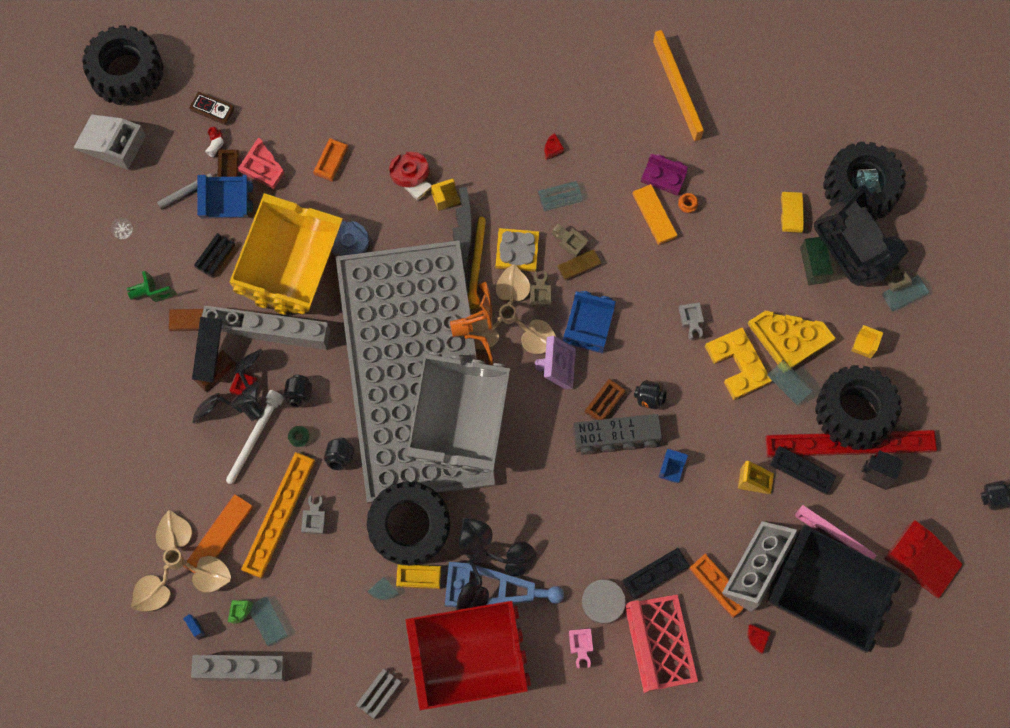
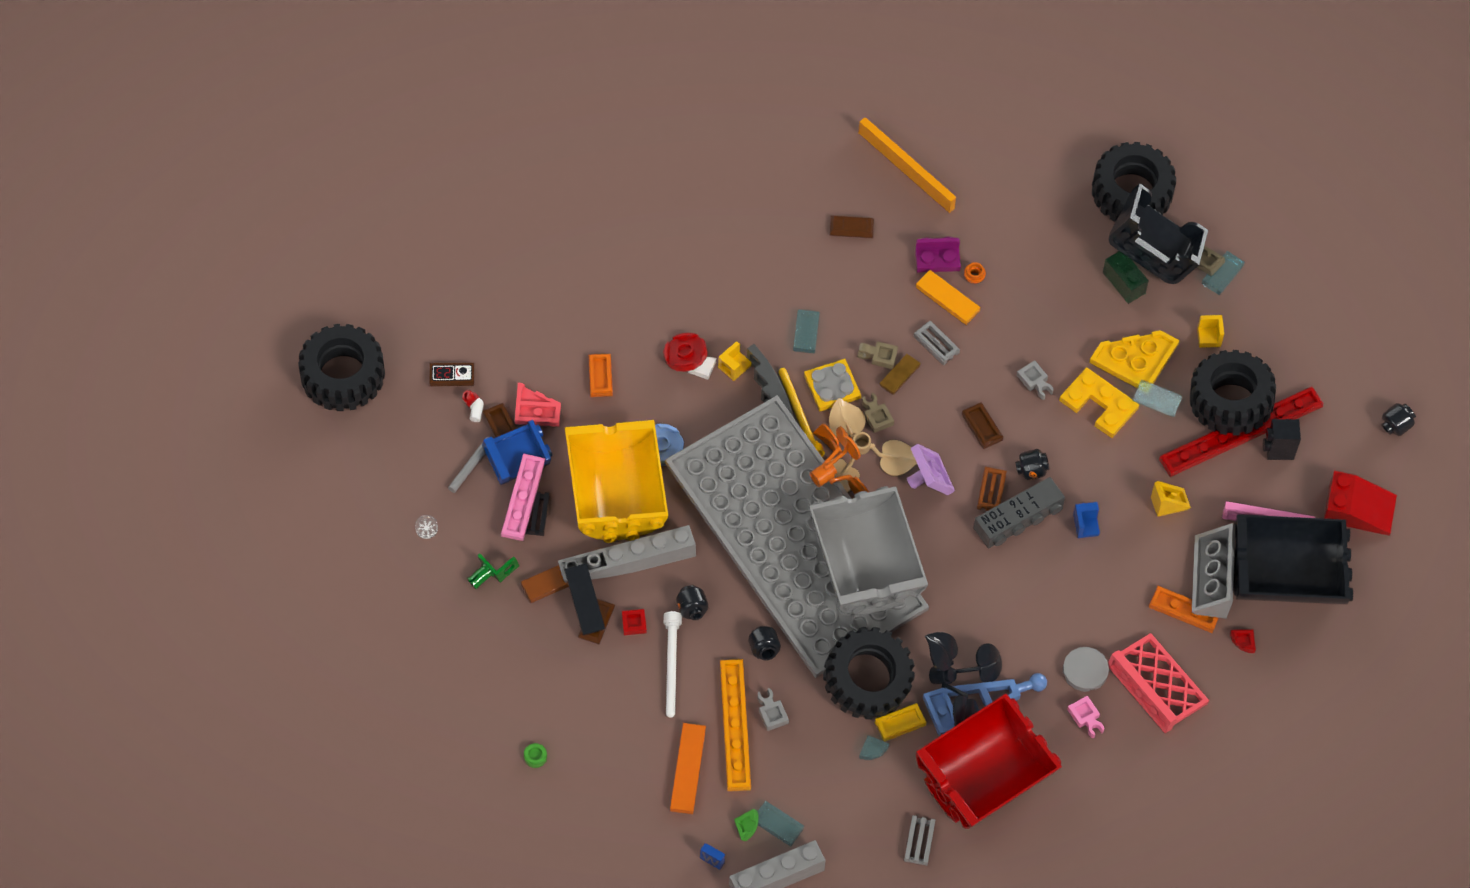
camera: 25 degrees left, 10 degrees down
(100, 466) = (535, 755): none -> bright green tile
(111, 140) = (367, 445): light grey slope -> none
(208, 237) = (523, 497): none -> bright pink tile
(209, 575) = (646, 783): tan plant -> none
(246, 400) = (652, 635): black plant -> none
(298, 430) = (715, 639): clear green plate -> none
(519, 193) = (806, 331): none -> clear light blue tile
(553, 147) = (814, 273): red tile -> none
(560, 203) = (857, 319): clear light blue tile -> none
(589, 321) = (938, 421): blue panel -> none
(605, 119) = (851, 226): none -> reddish brown tile
(626, 340) = (982, 425): none -> reddish brown tile
(629, 266) = (938, 349): none -> light grey tile
(655, 573) = (1120, 623): black tile -> none
(792, 212) = (1079, 240): yellow slope -> none
(802, 470) = (1209, 473): black tile -> none
(866, 177) = (1135, 177): clear light blue leg -> none

